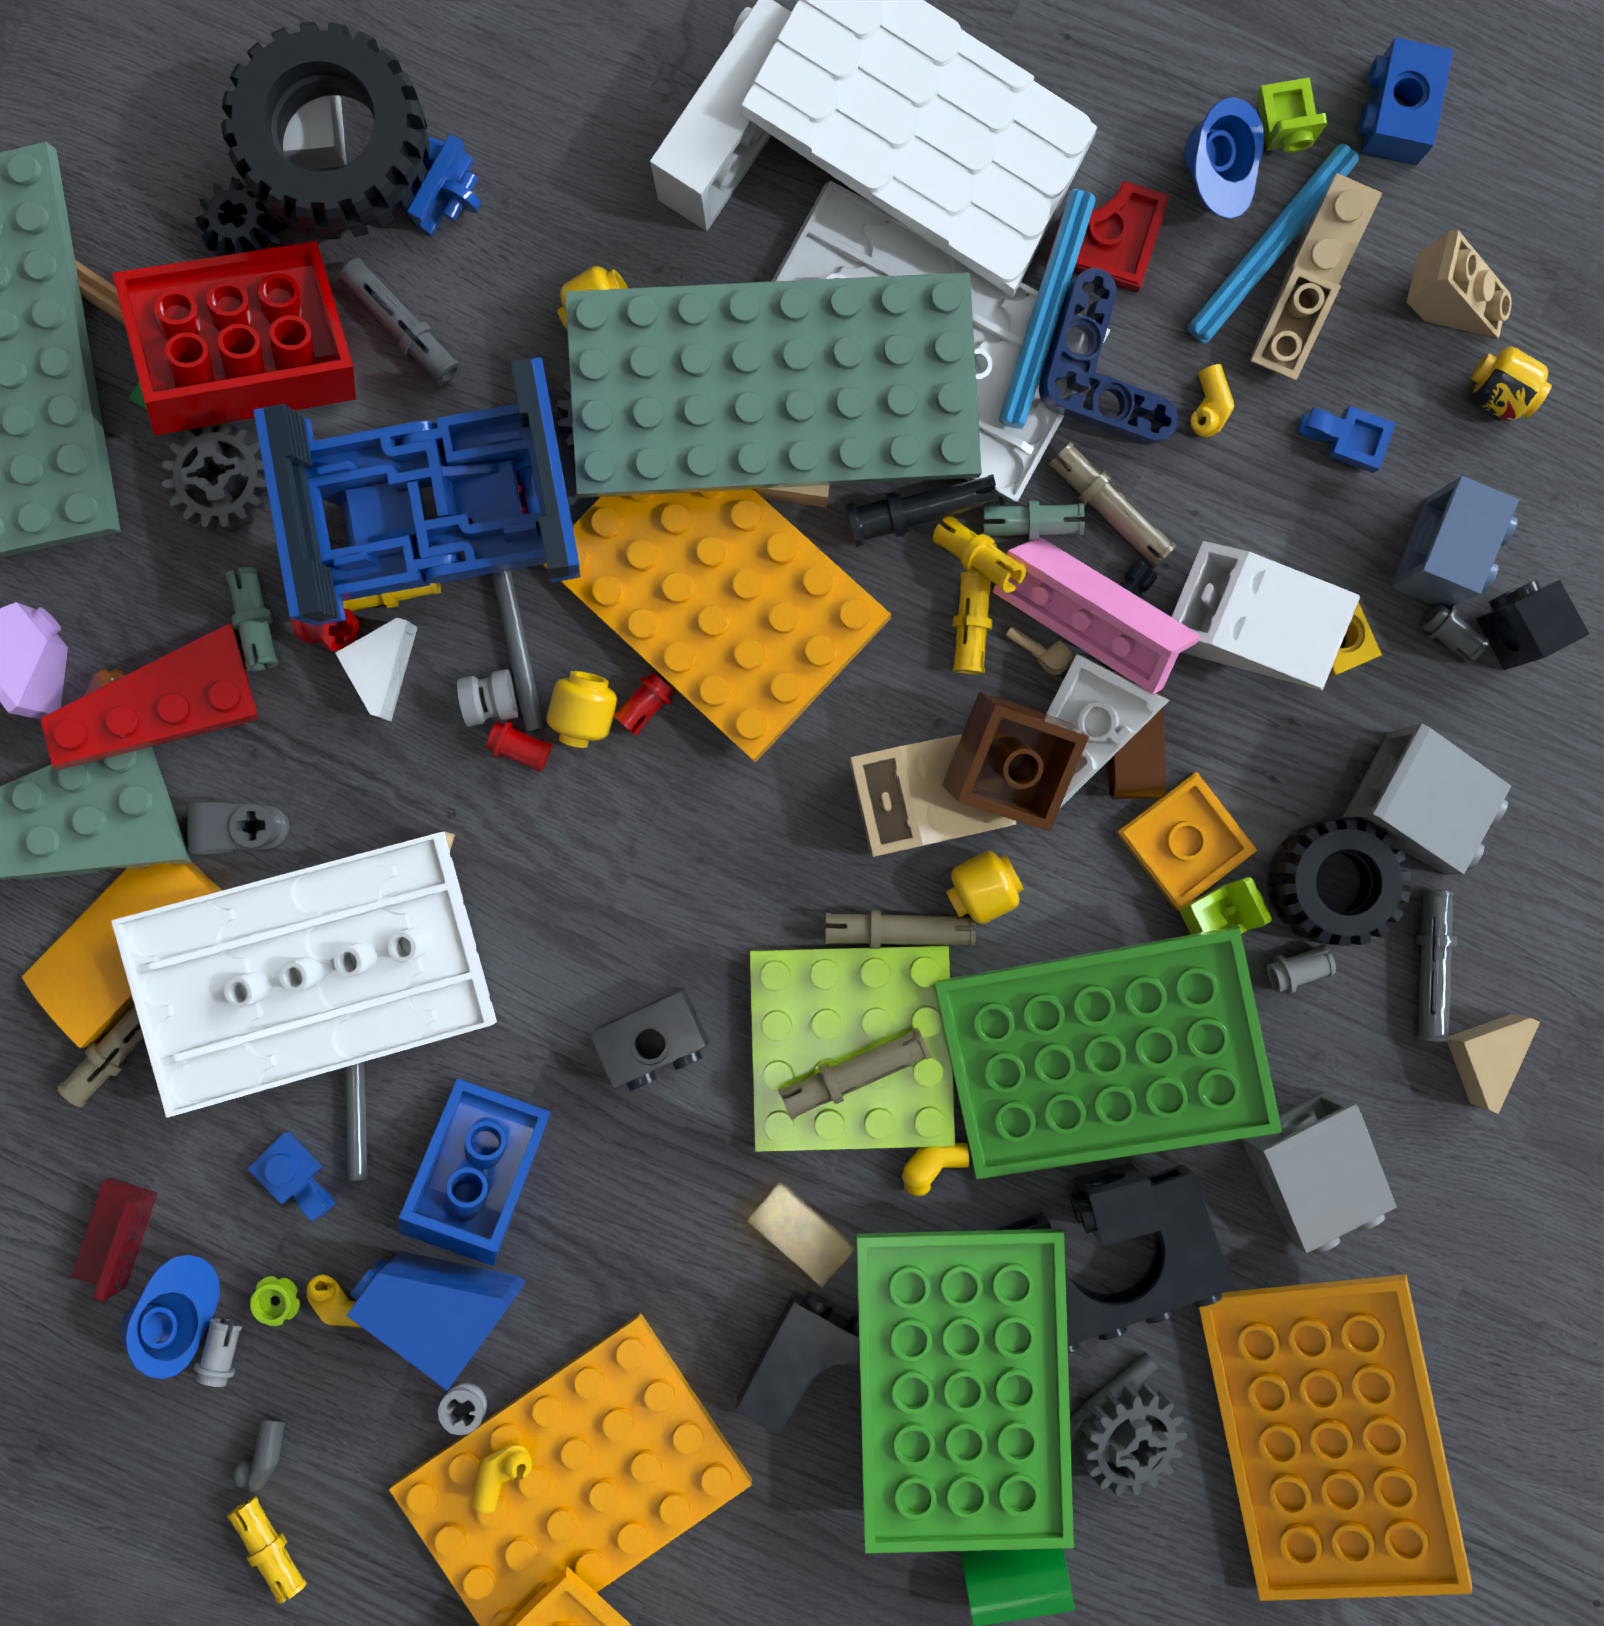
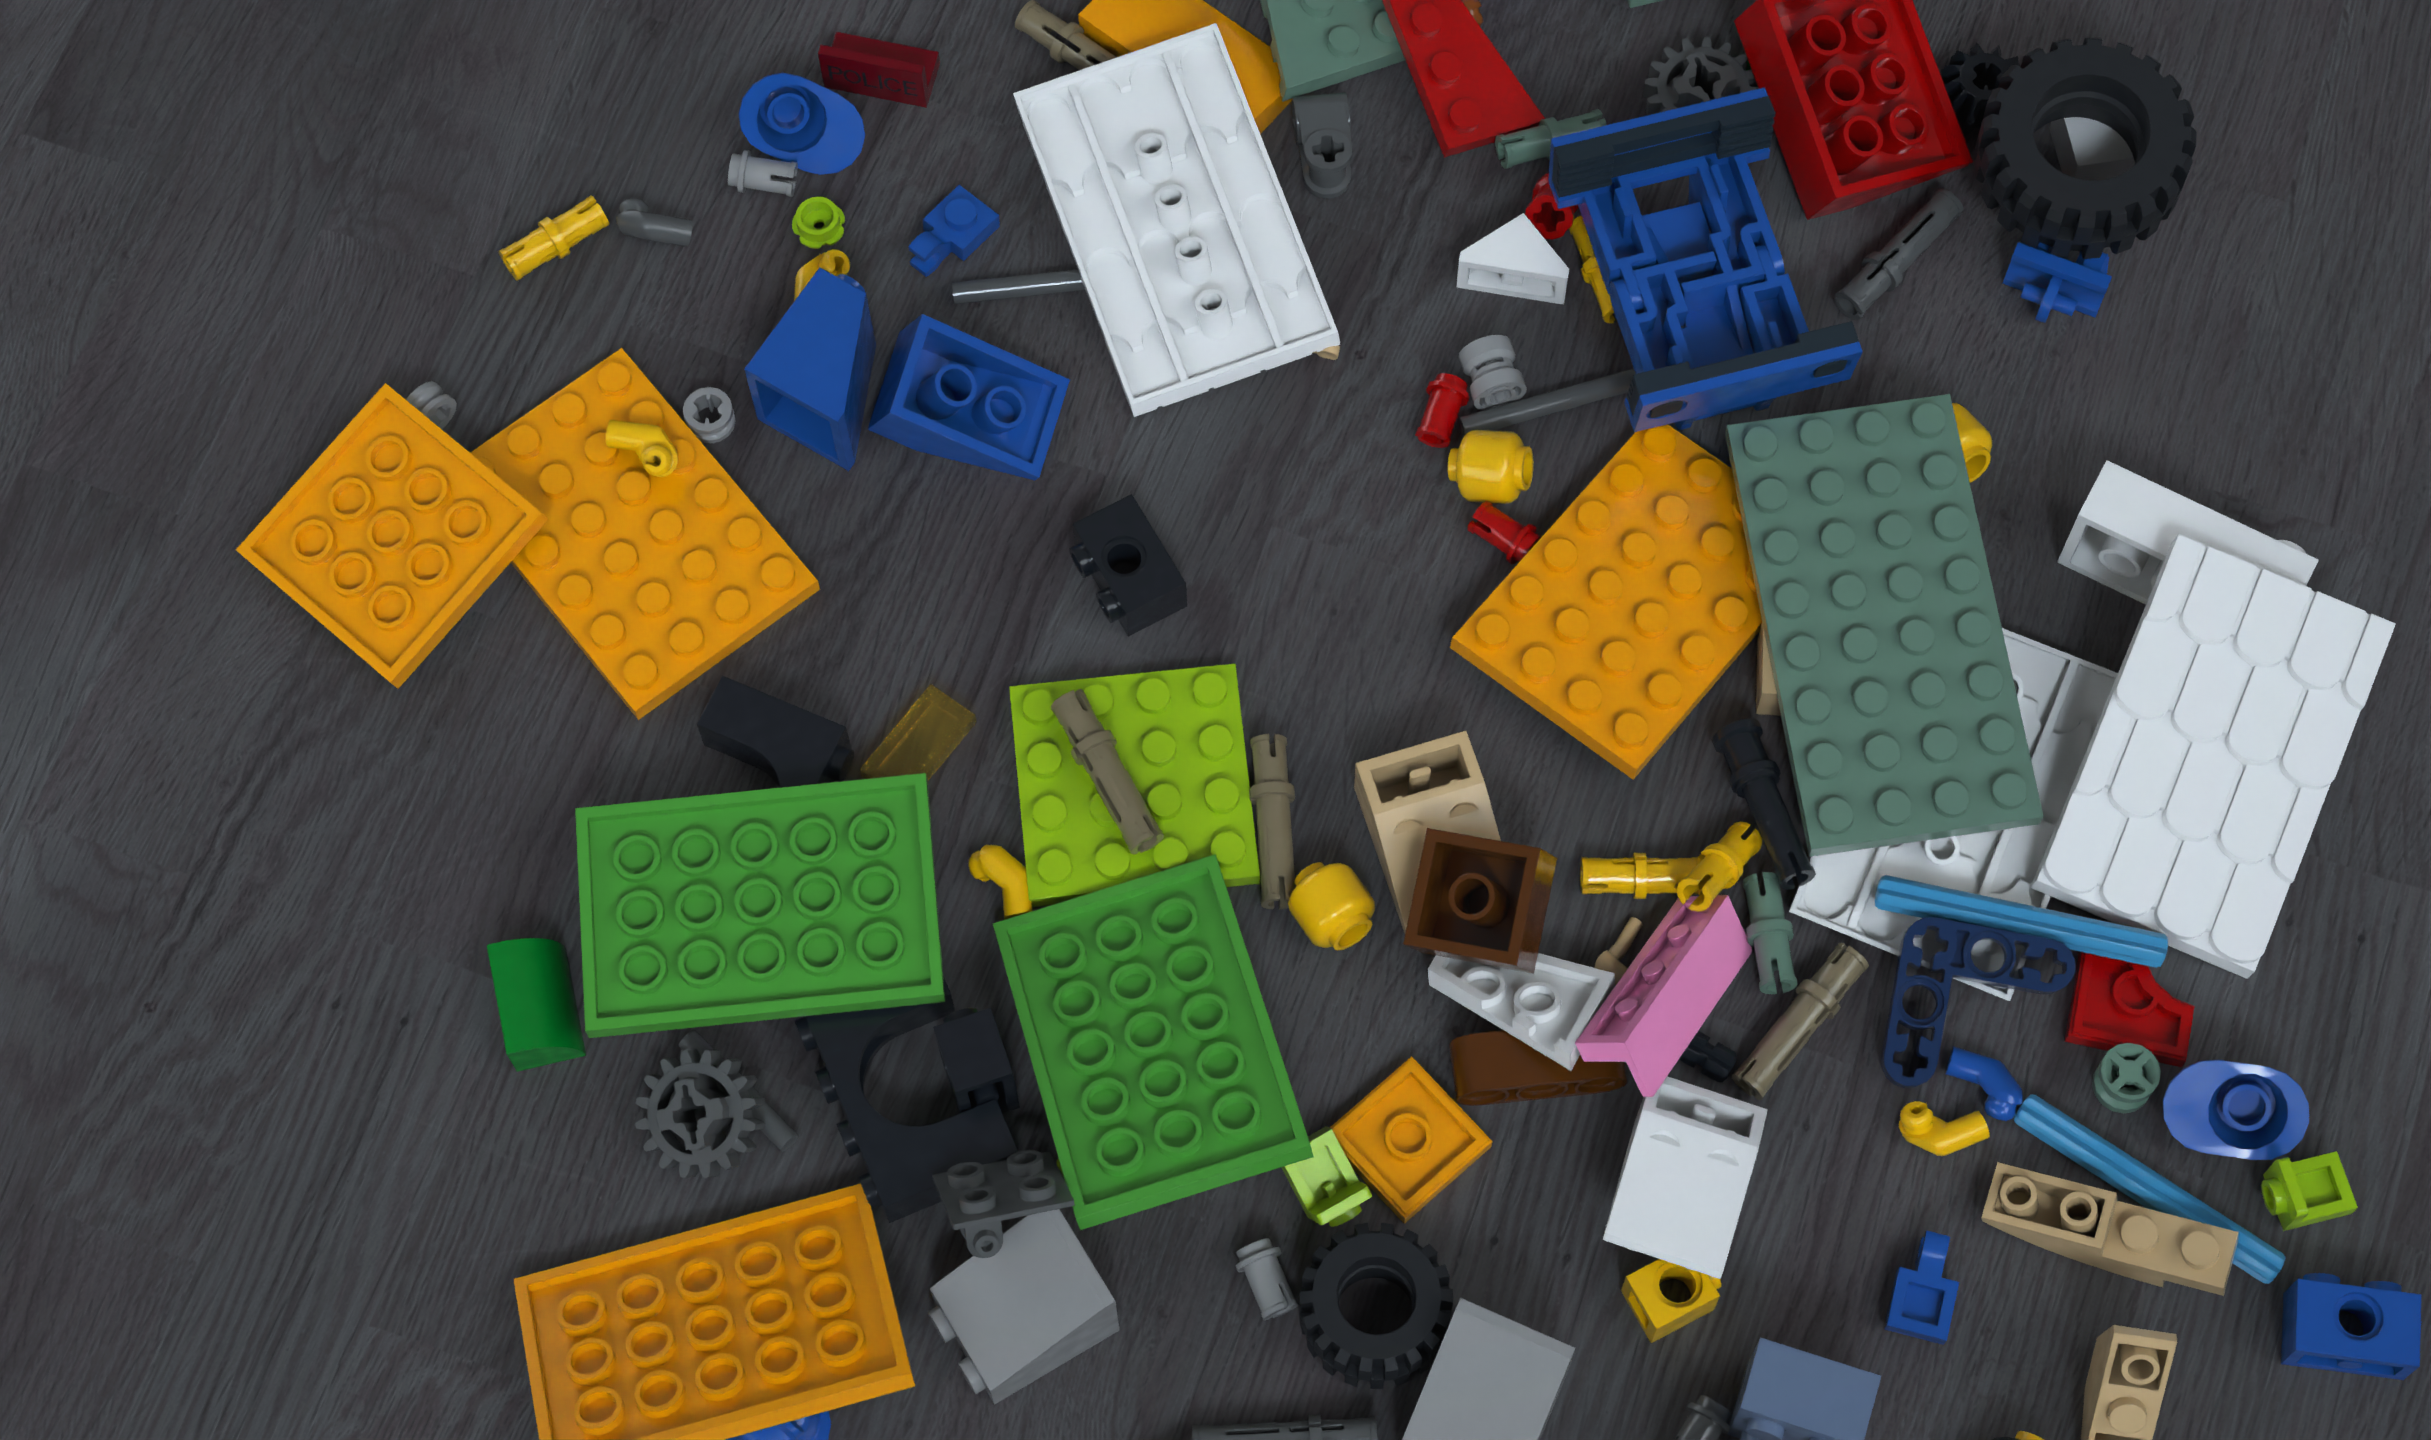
camera: 85 degrees right, 20 degrees down
(1183, 348) = (1992, 1076): none -> blue arm
(1189, 235) = (2134, 1067): none -> sand green wheel
(1249, 1193) = (986, 1194): none -> dark grey hinge

